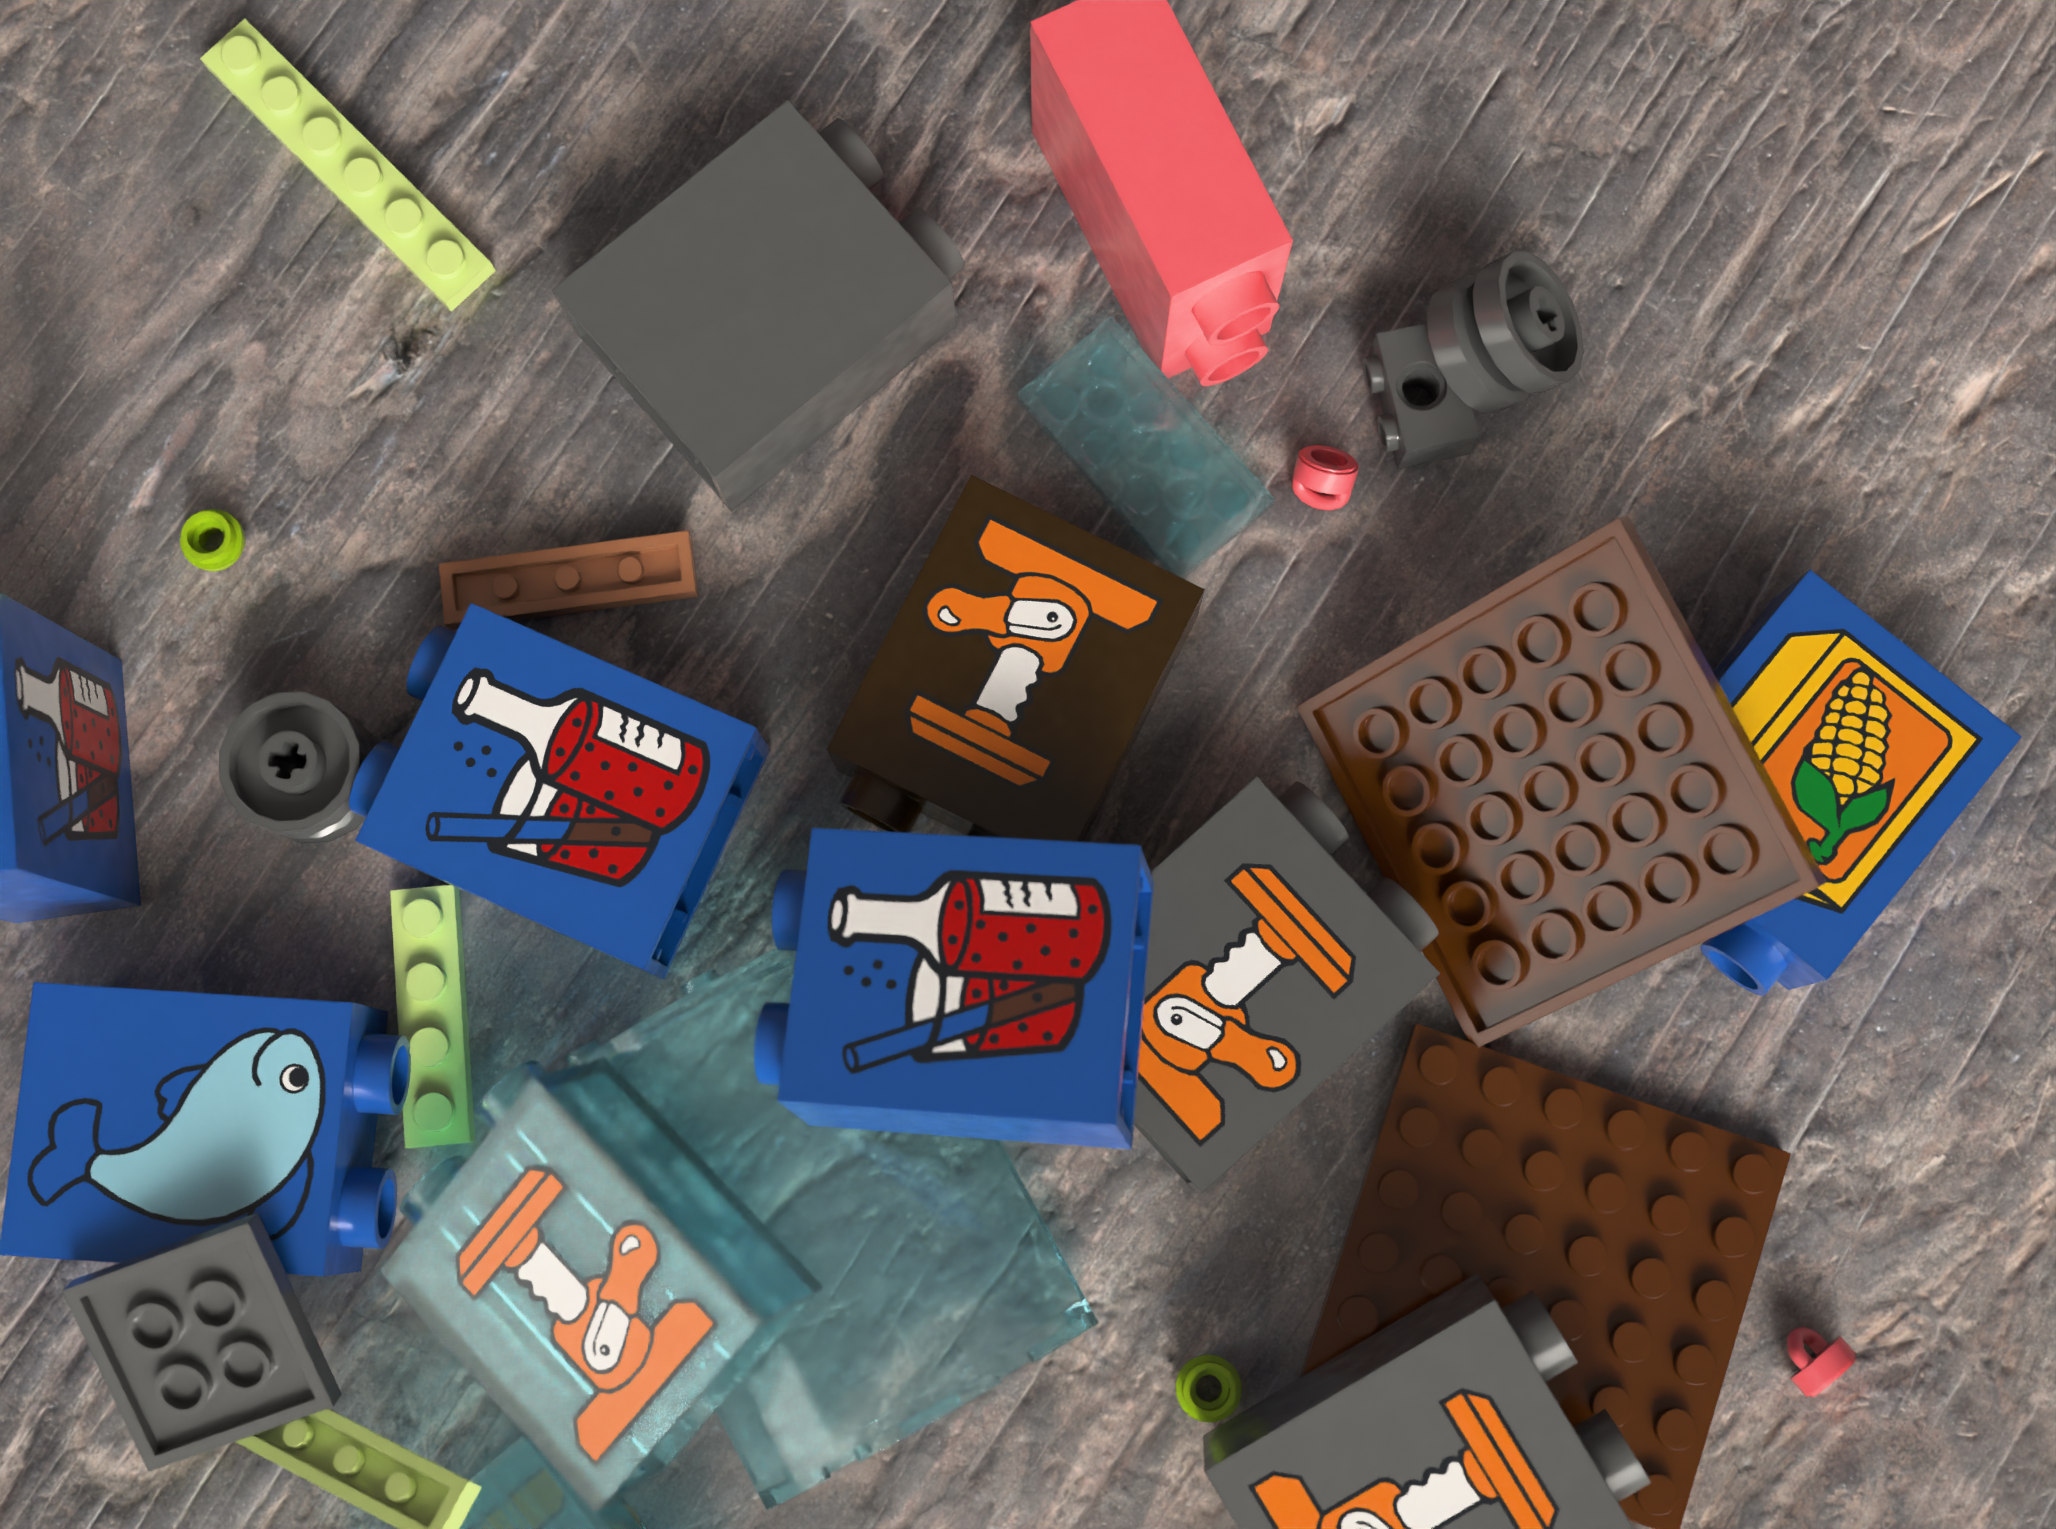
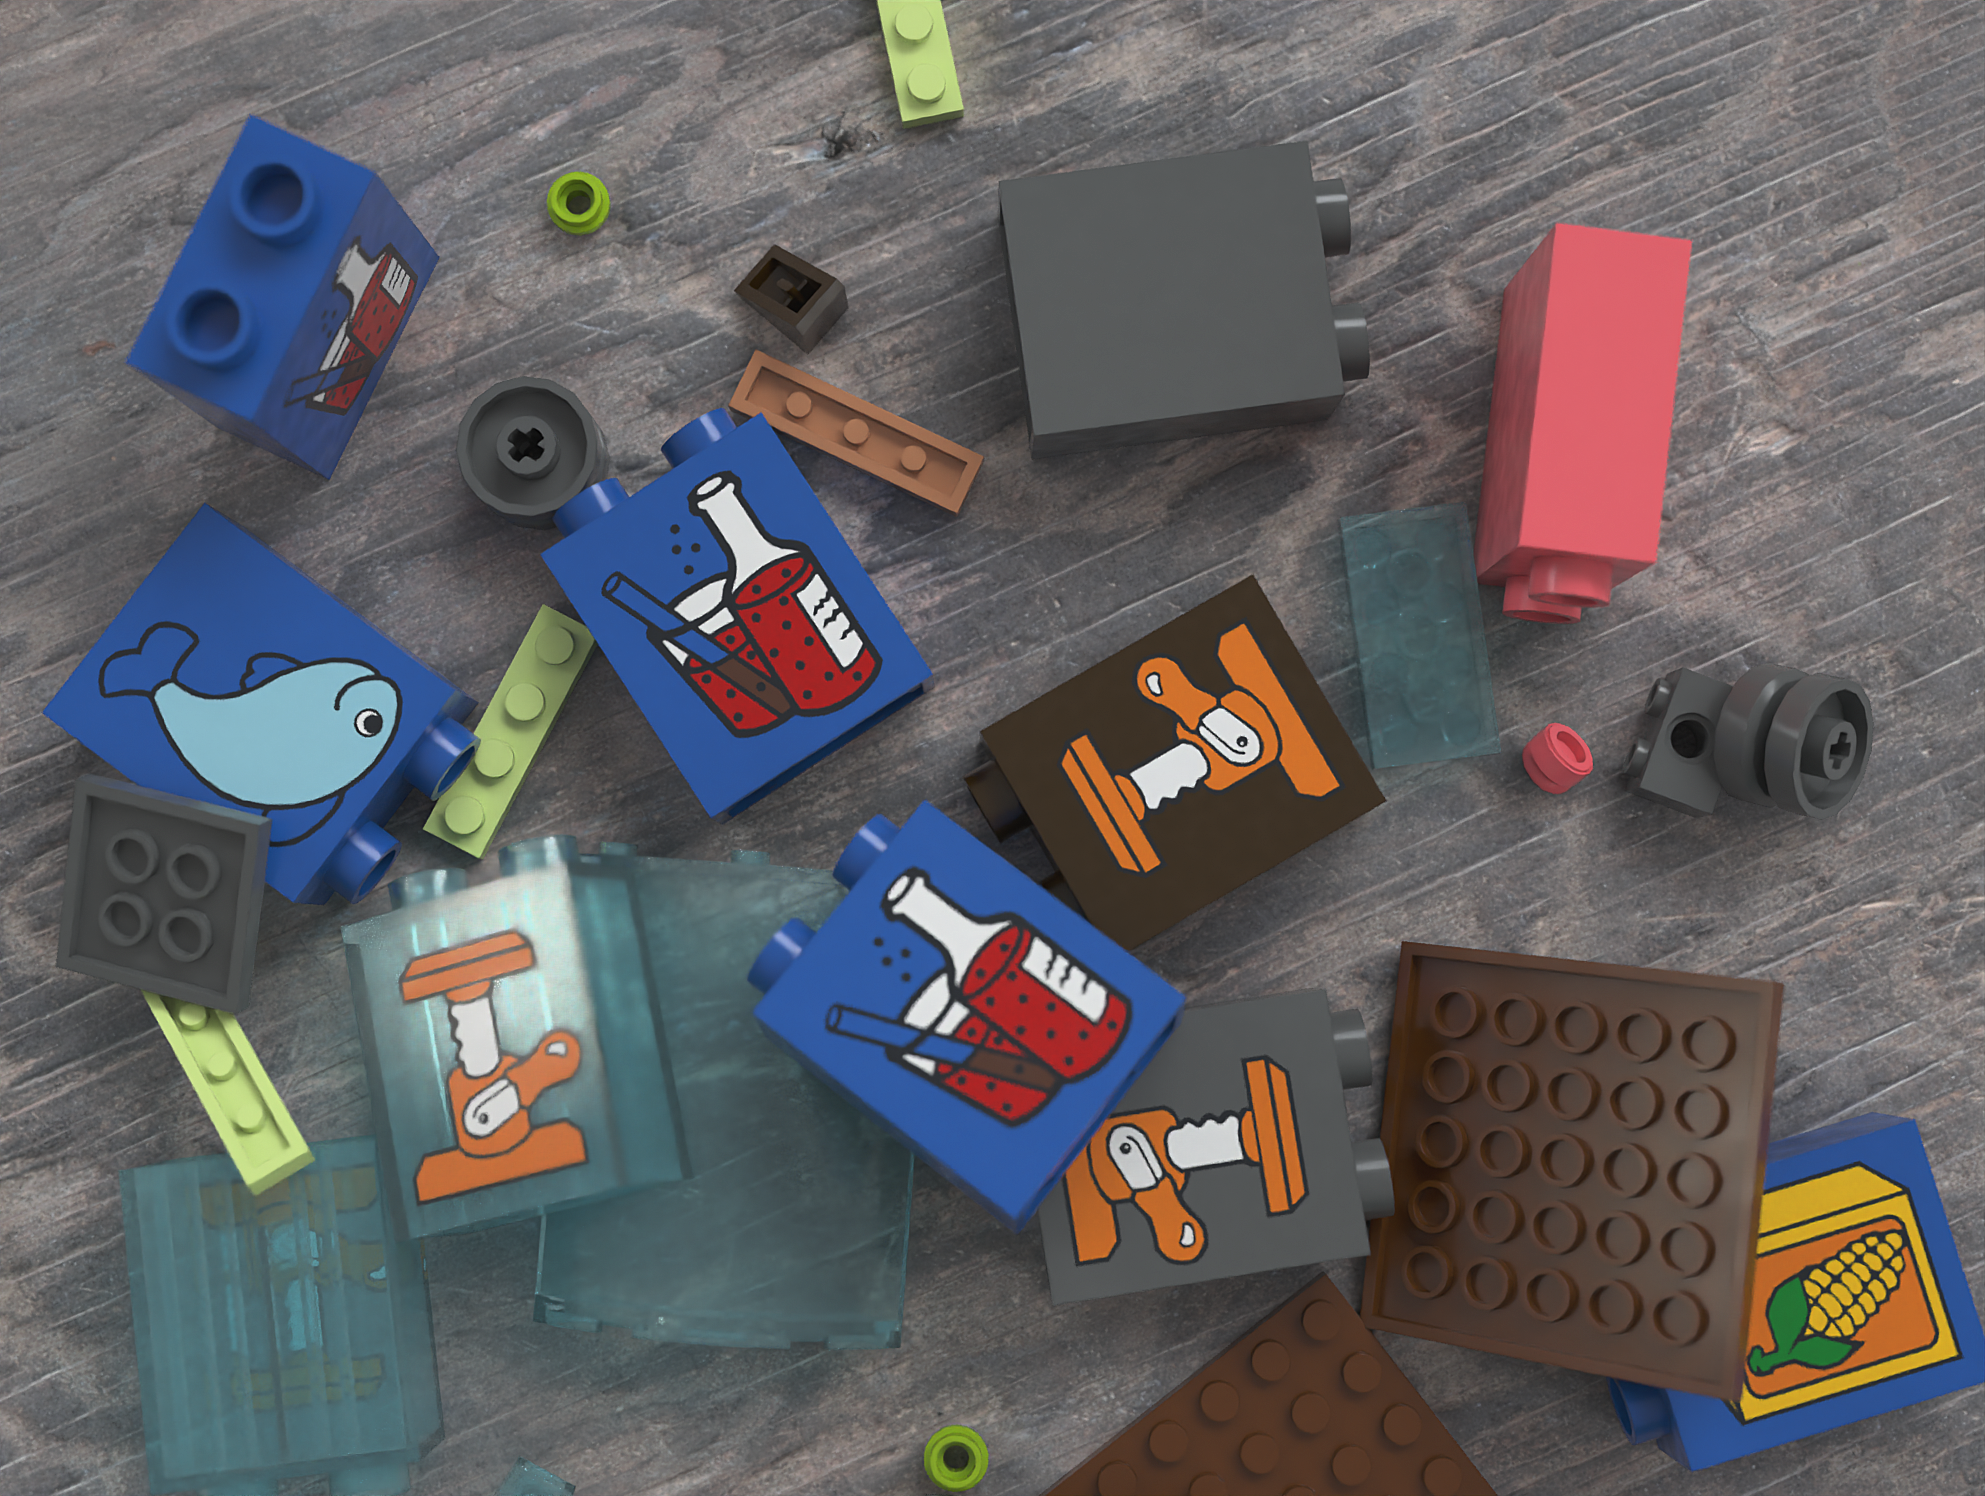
camera: 25 degrees right, 5 degrees up
(446, 501) = (794, 297): none -> dark brown slope

